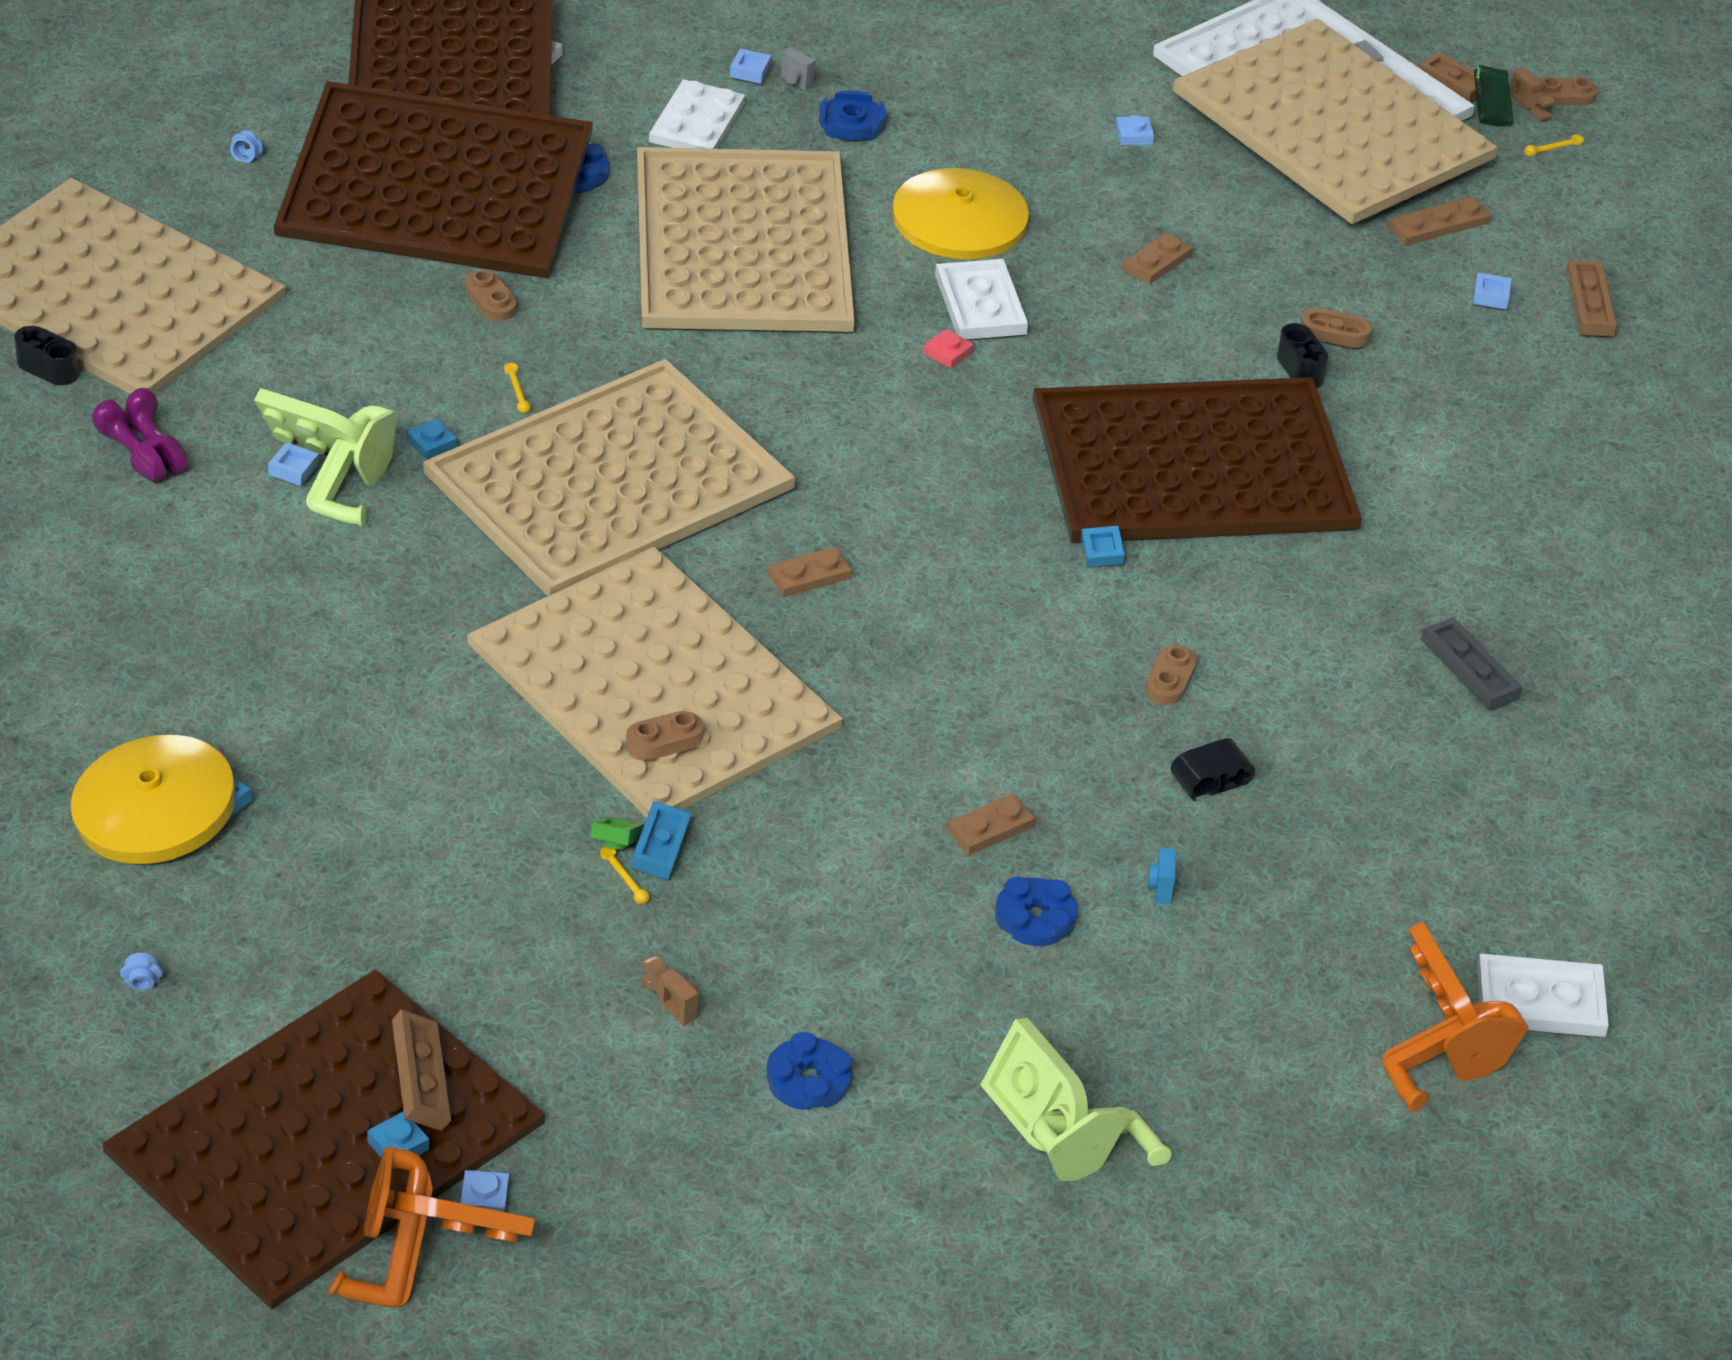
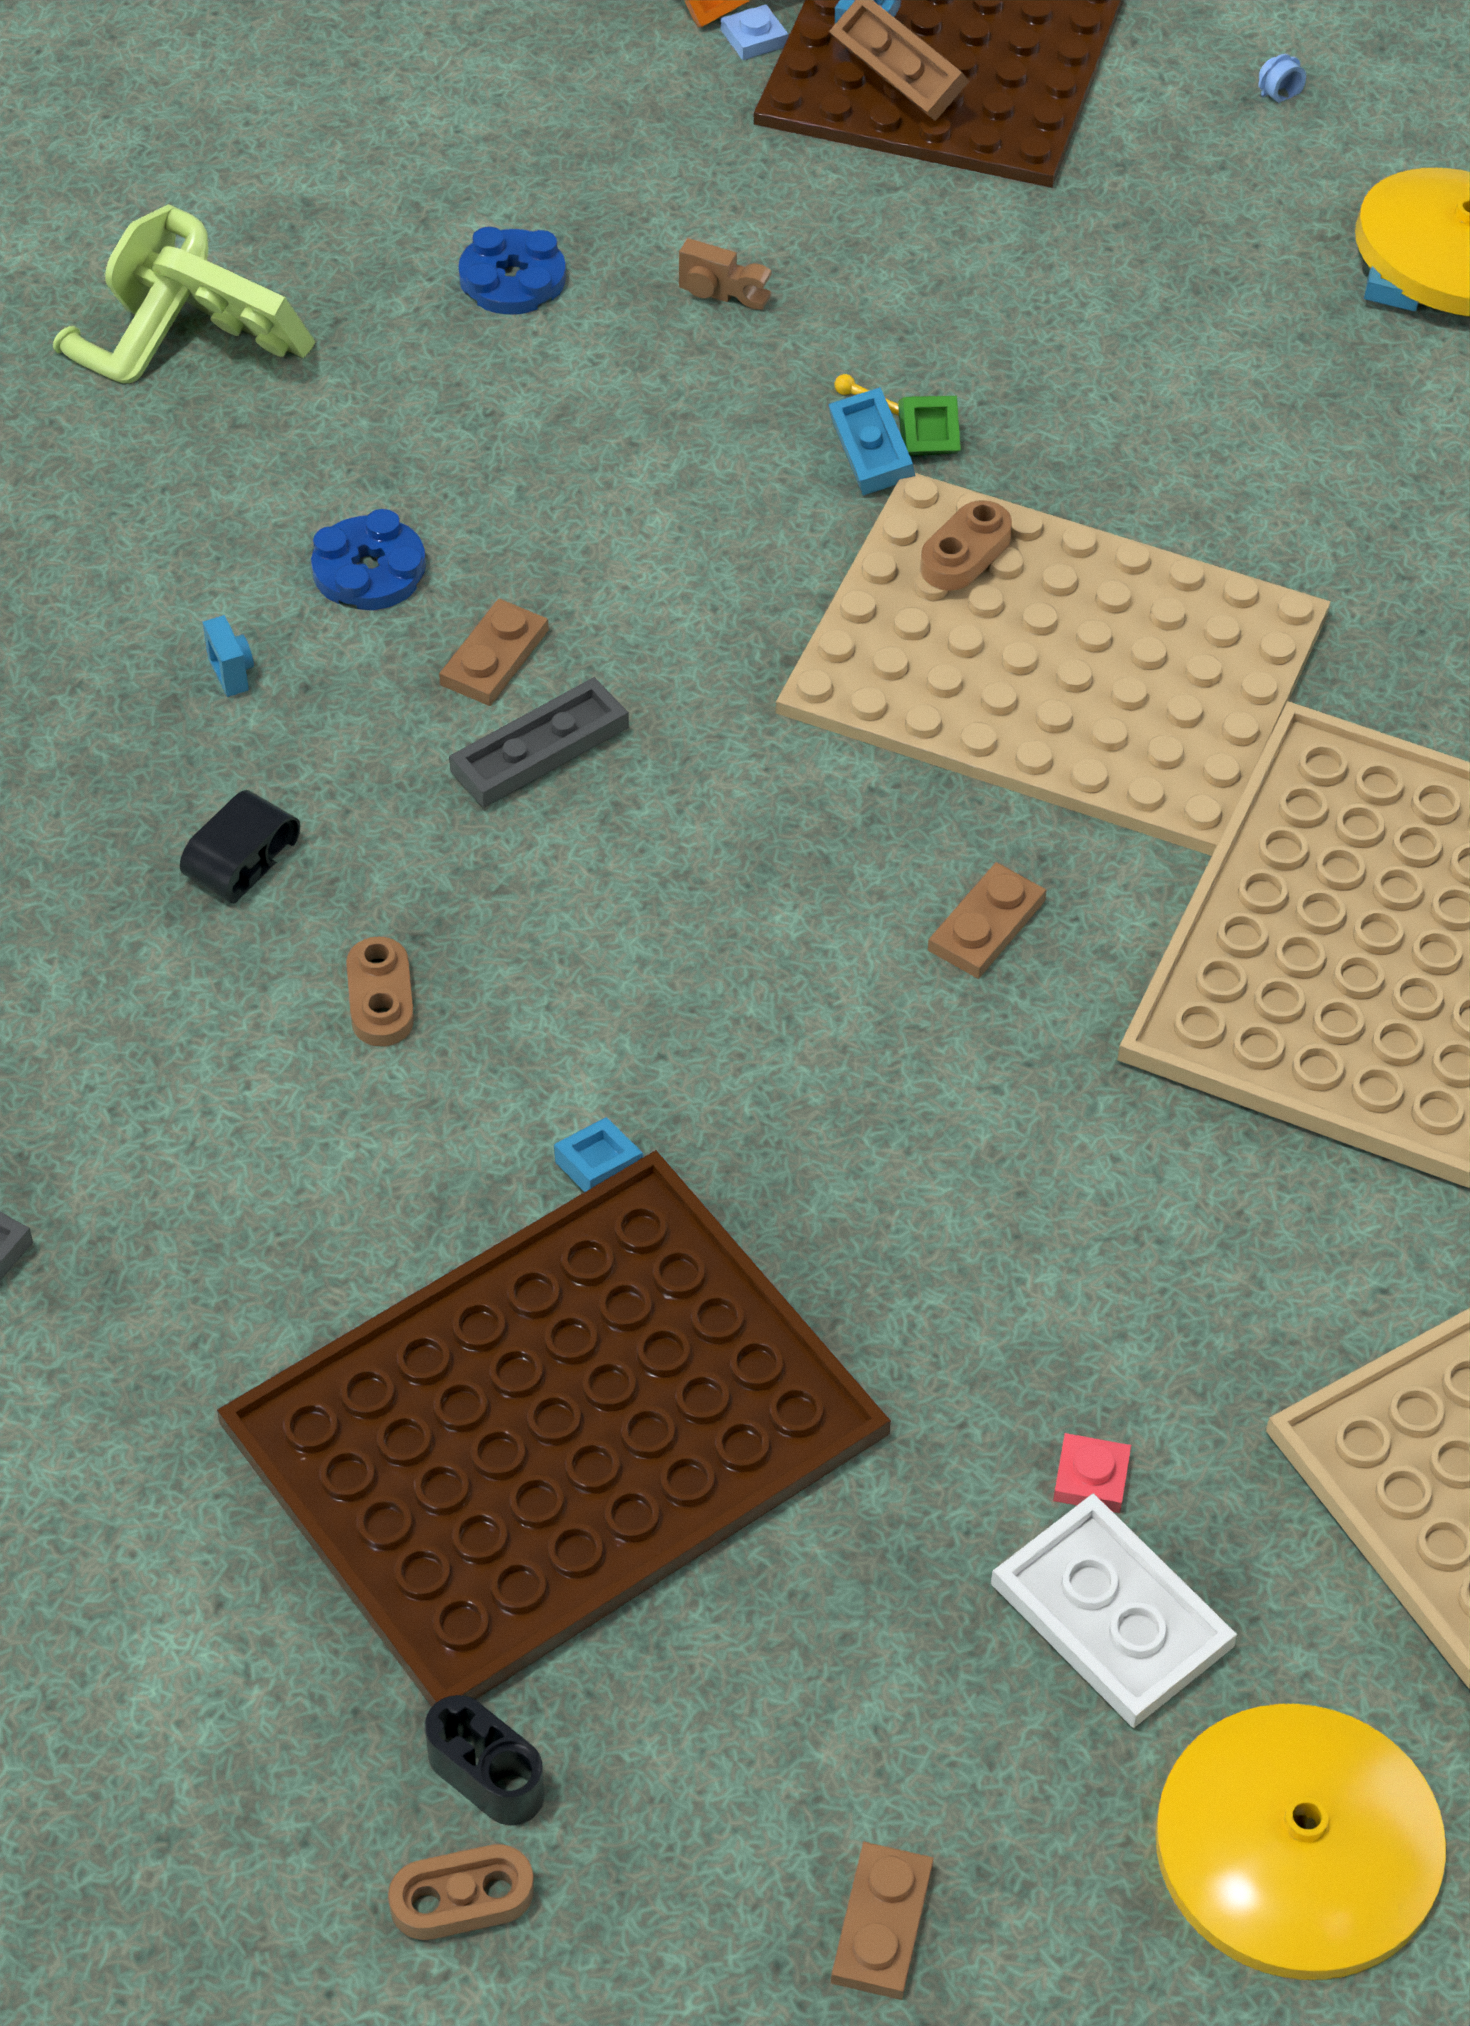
camera: 155 degrees right, 10 degrees up
(999, 755) = (538, 742): none -> dark grey plate

